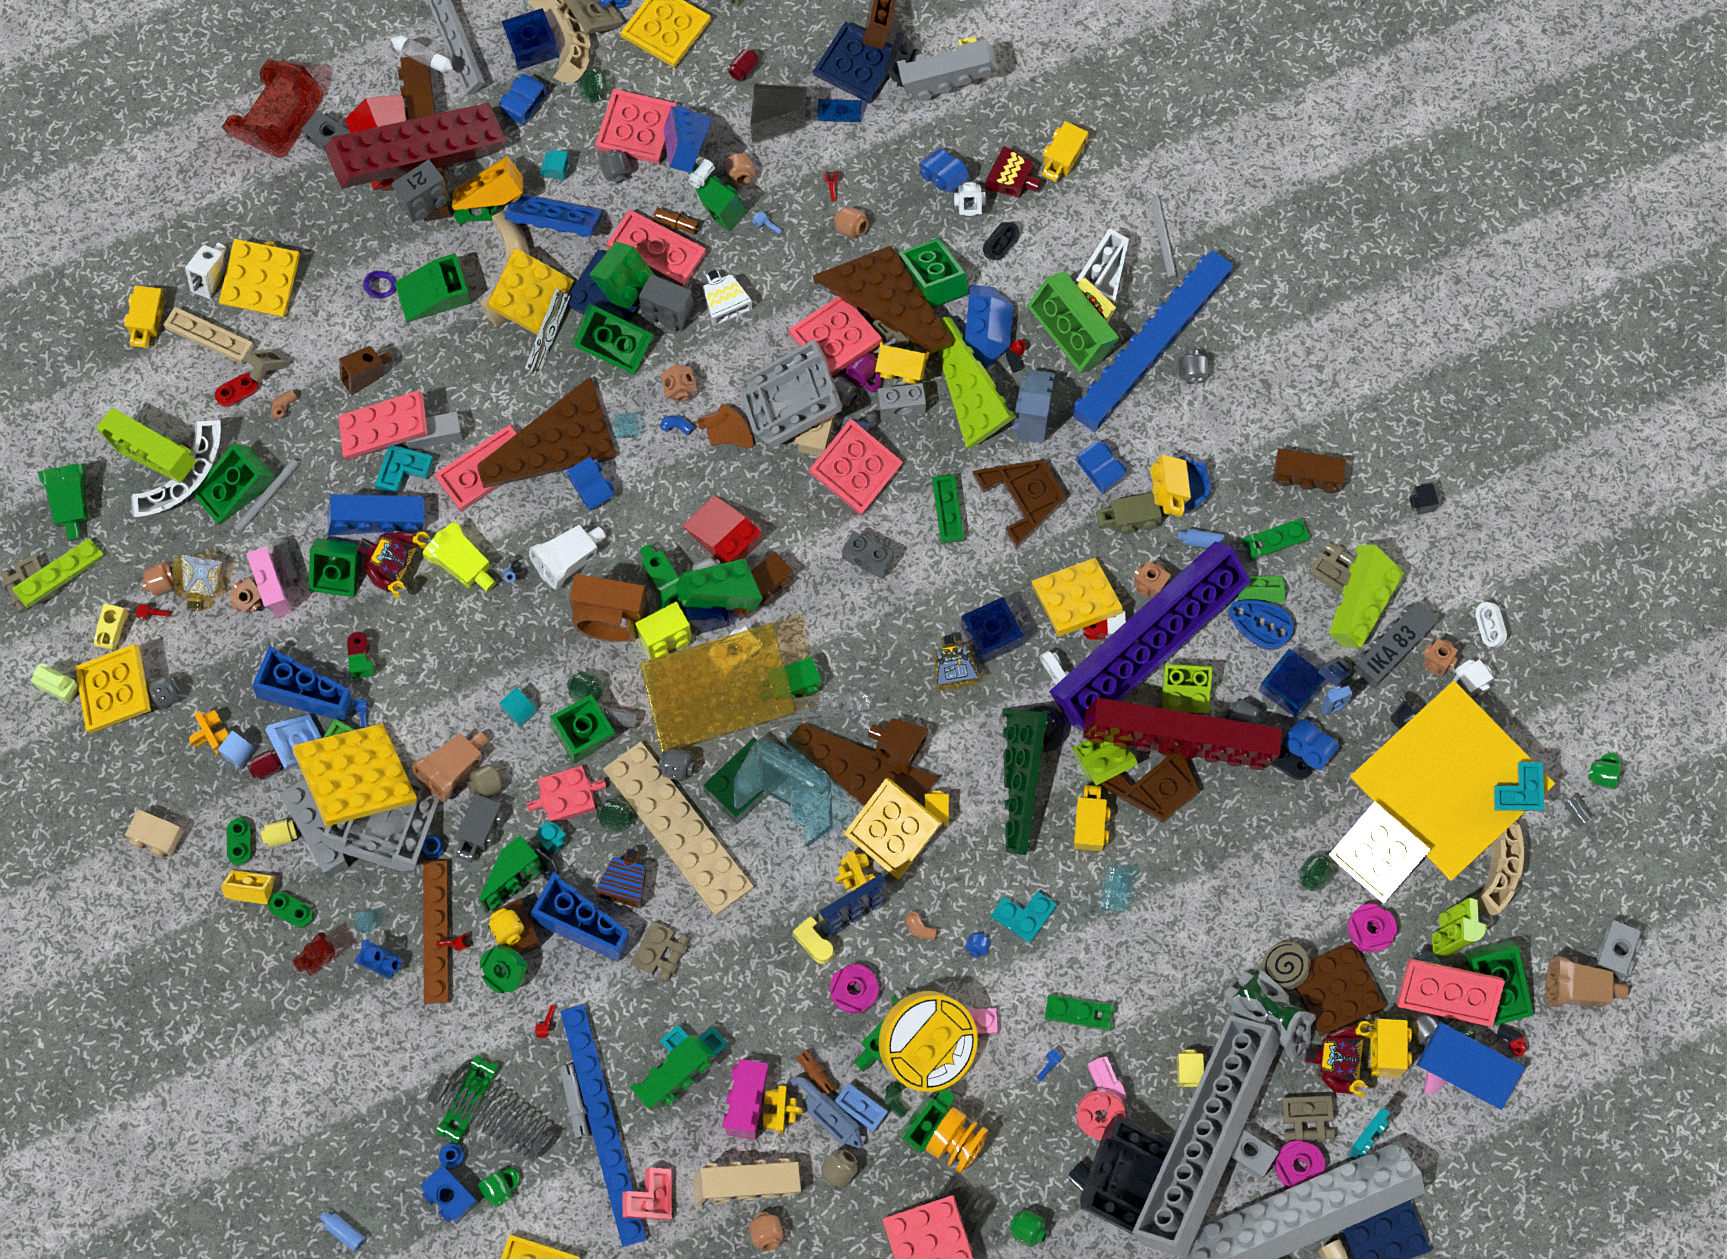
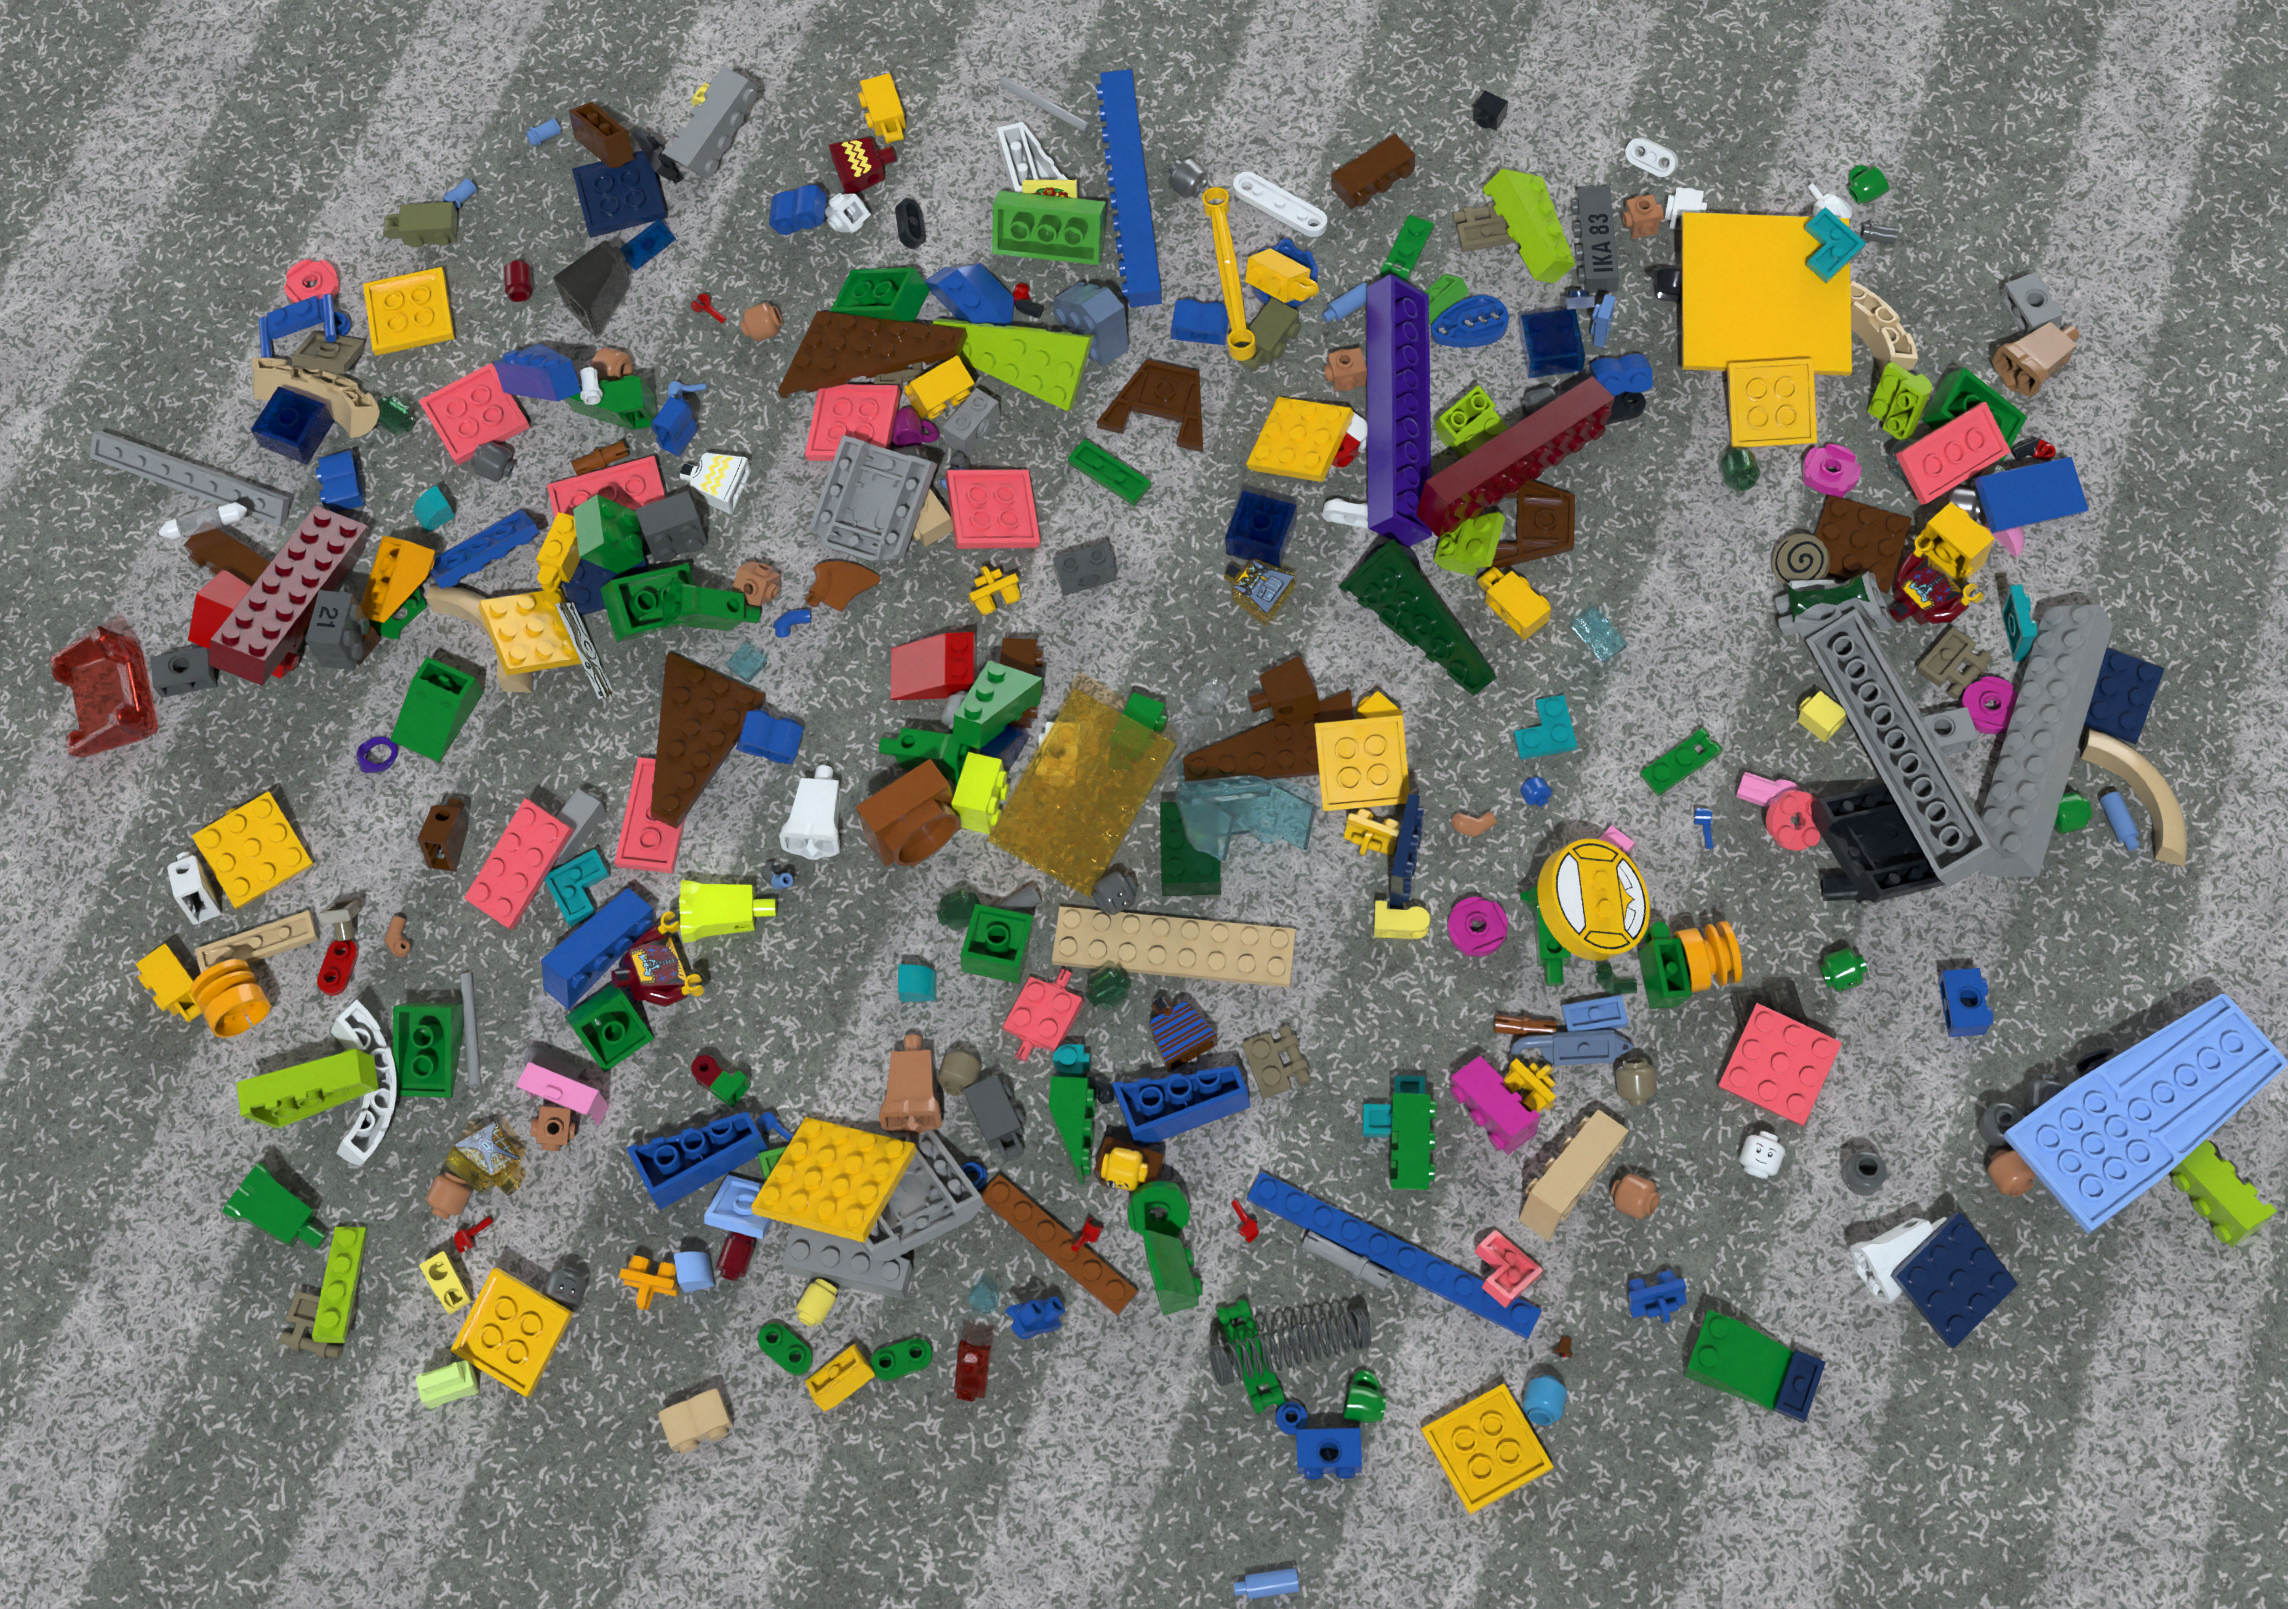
camera: 40 degrees left, 5 degrees down
(161, 352) = (227, 995): none -> light orange wheel
(469, 1008) = (1171, 1272): none -> green slope
(585, 259) = (558, 554): none -> yellow brick
(633, 372) = (705, 607): none -> green piece
(732, 241) = (674, 426): none -> blue brick
(793, 517) = (1005, 586): none -> yellow hips
(1148, 452) = (1229, 274): none -> yellow piece
(1231, 437) = (1280, 204): none -> white plate
(1565, 766) = (1834, 203): none -> white piece

